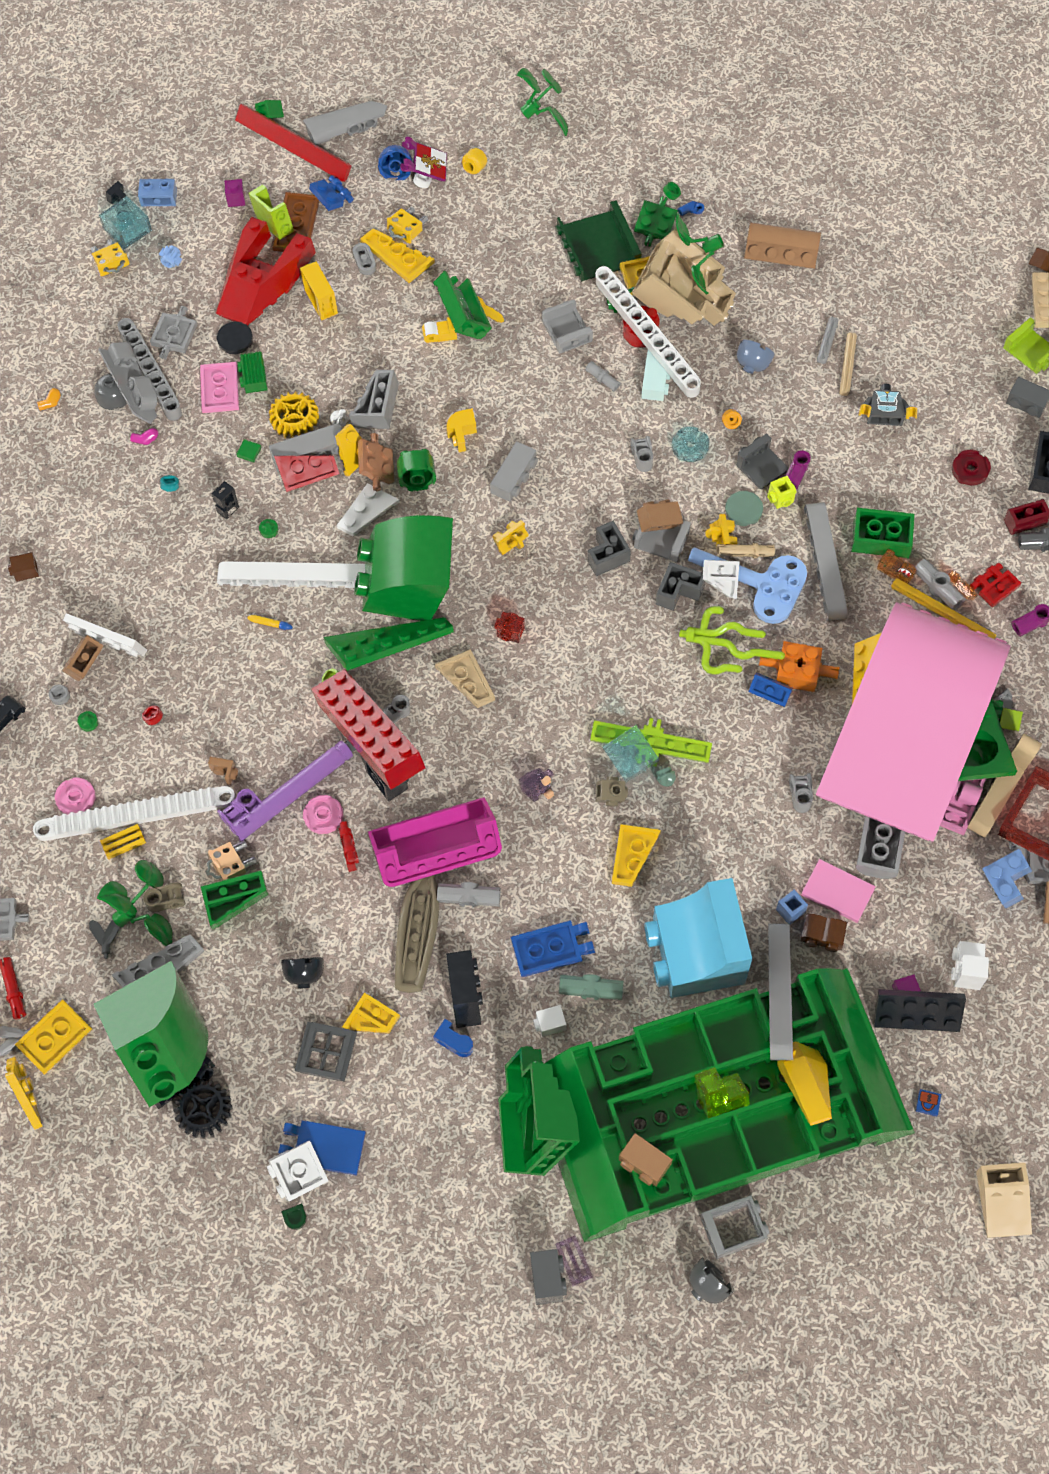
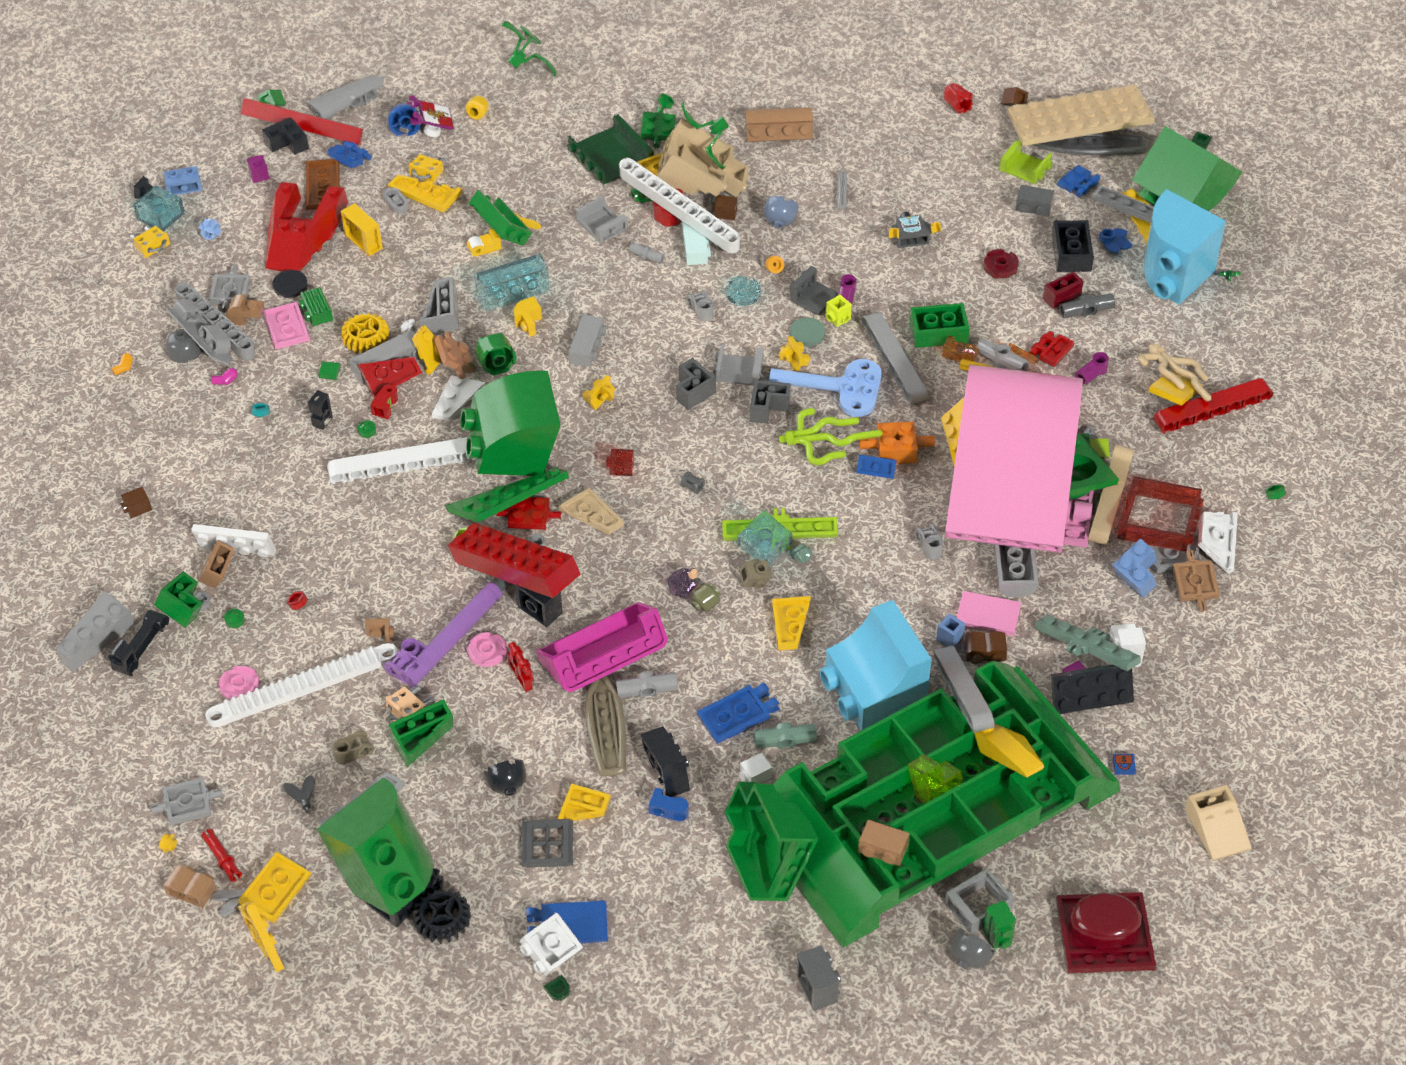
camera: 15 degrees left, 15 degrees down
(34, 691) = (178, 600): none -> green brick
(116, 896) = (320, 764): green plant -> none
(137, 843) = (295, 708): yellow tile -> none
(178, 362) = (242, 308): none -> medium nougat brick
(269, 622) = (389, 504): yellow piece -> none
(271, 156) = (285, 134): none -> black brick
(276, 218) = (305, 177): lime panel -> none
(292, 500) = (384, 400): none -> red leg
(406, 667) = (530, 514): none -> red plate
(454, 387) = (512, 282): none -> clear light blue brick
(554, 806) = (705, 597): none -> olive head
(577, 666) = (692, 482): none -> dark grey bush
(581, 1279) = (848, 978): tile -> none
(659, 516) = (733, 347): medium nougat brick -> none
(691, 207) = (693, 110): blue arm -> none
(698, 338) = (725, 207): none -> reddish brown brick
(722, 576) = (806, 383): white wing -> none
(745, 550) = (821, 362): tan pin -> none
(745, 1264) = (999, 925): none -> green brick
(848, 364) = (866, 205): tan axle -> none
(852, 1294) = (1105, 932): none -> dark red piece
(929, 957) = (1090, 641): none -> sand green hinge
(983, 249) = (958, 98): none -> red piece

